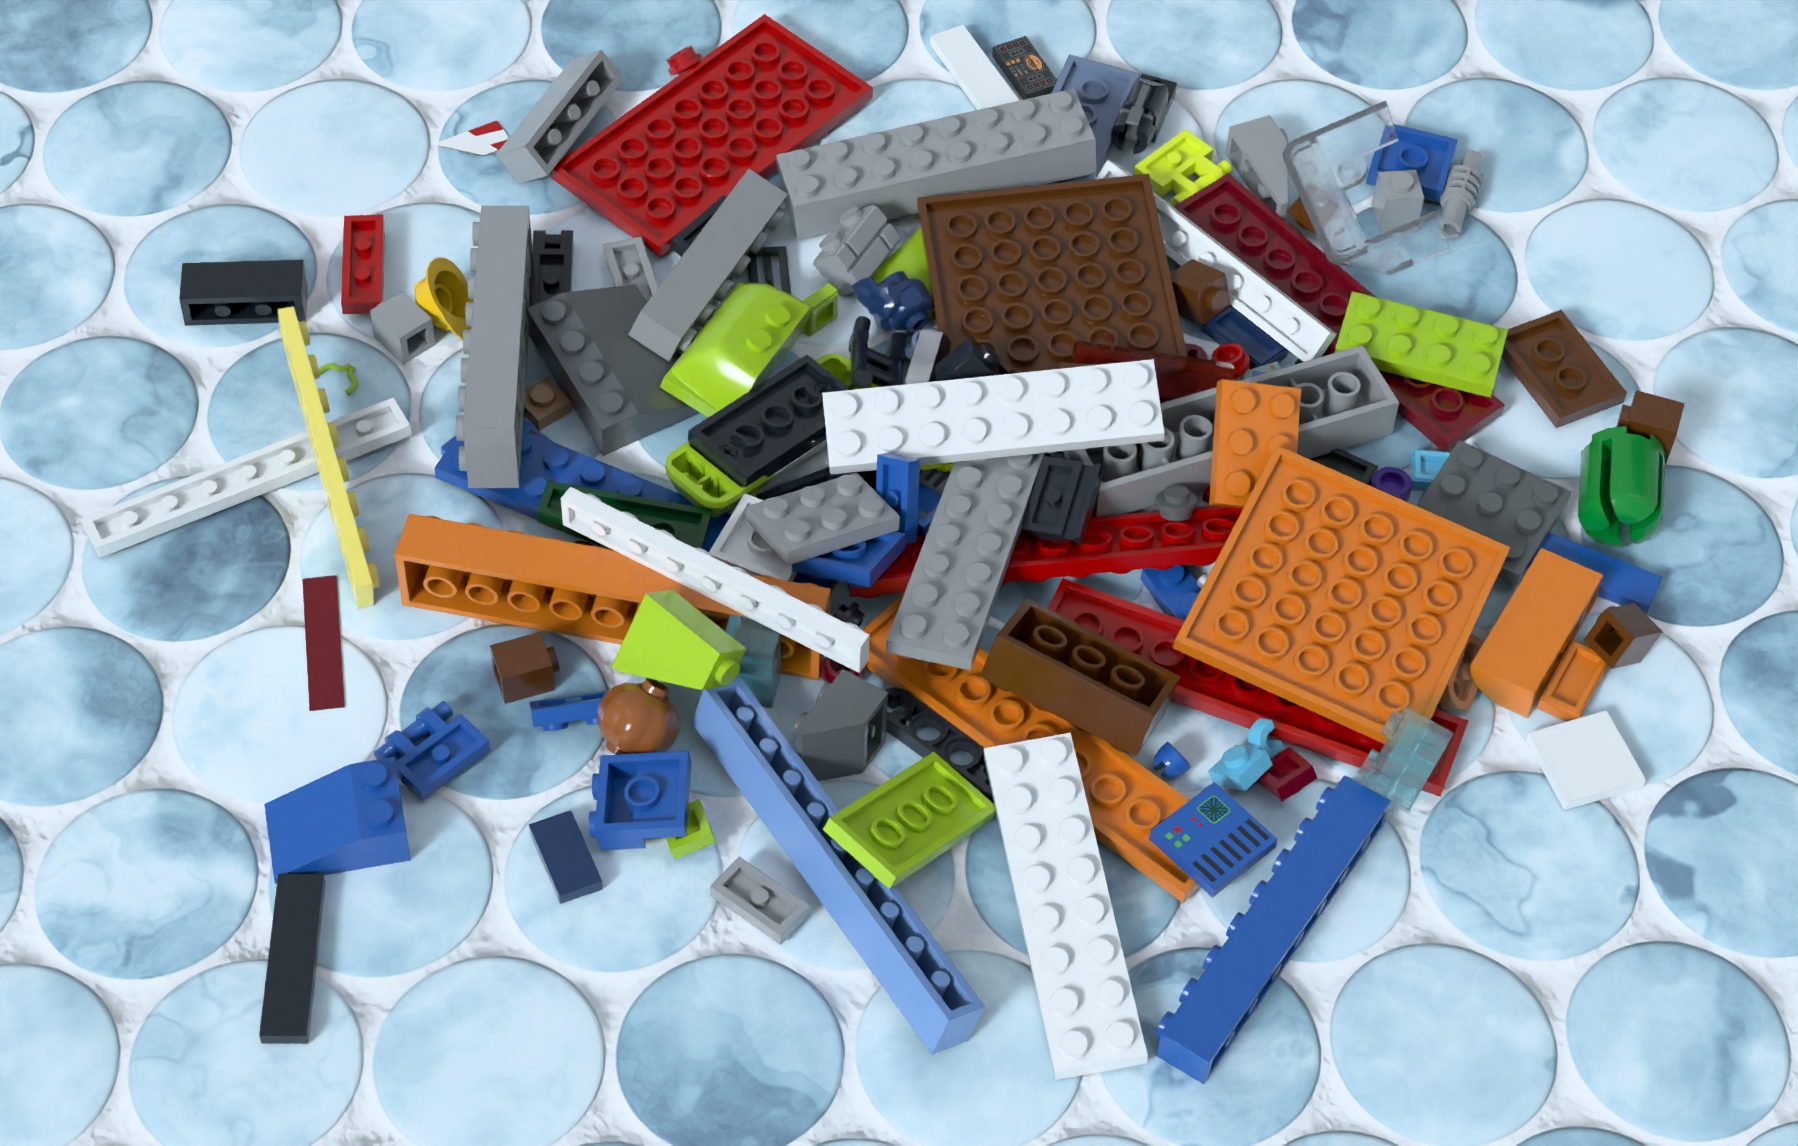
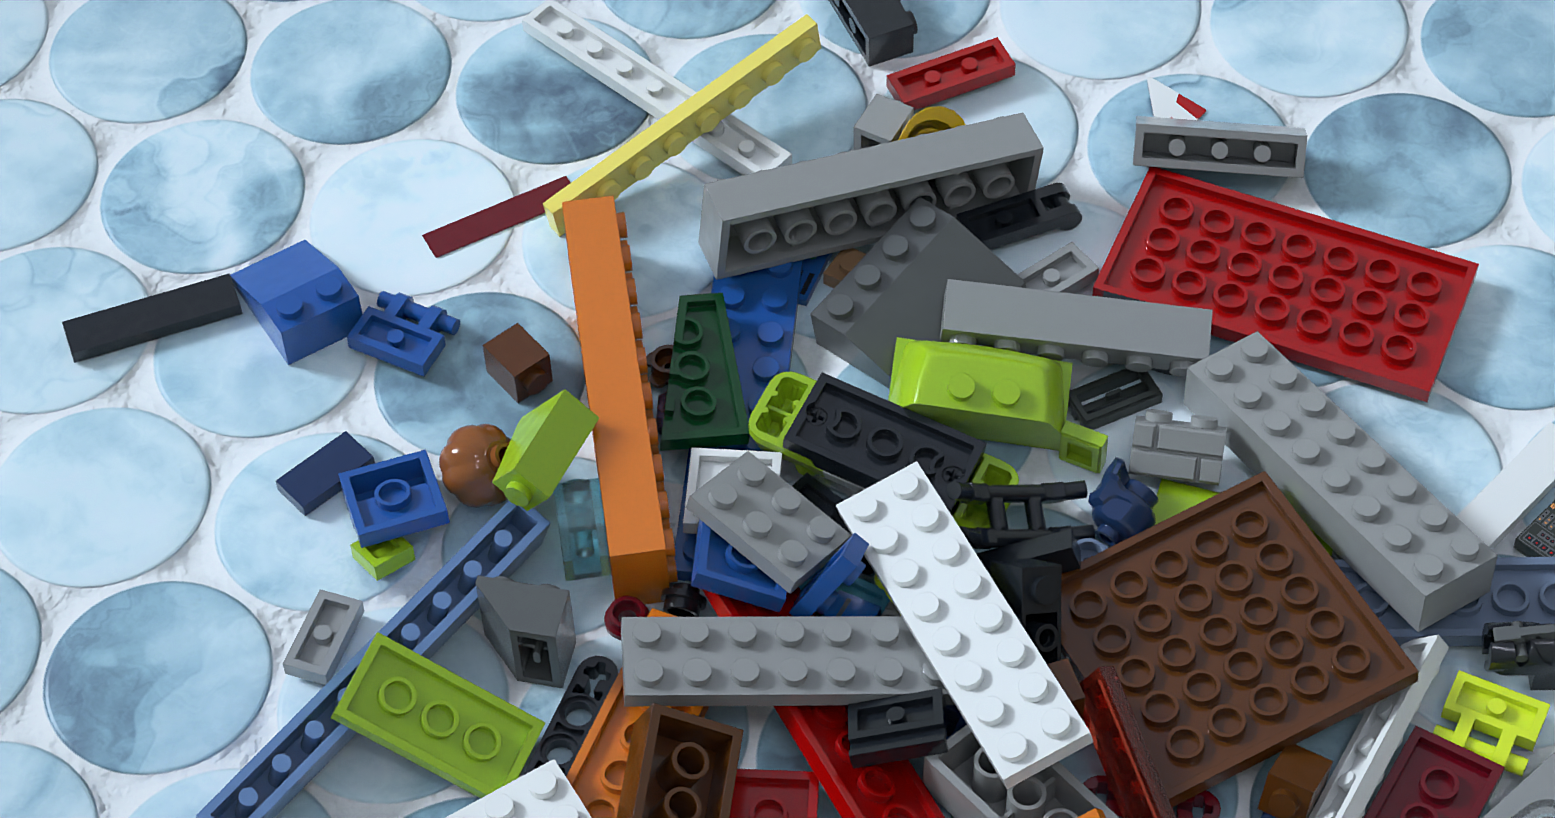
camera: 75 degrees right, 0 degrees up
(351, 369) = (824, 118): lime piece -> none
(557, 712) = (480, 406): blue plate -> none
(683, 60) = (1370, 220): red plate -> none
(715, 579) = (617, 455): white plate -> none

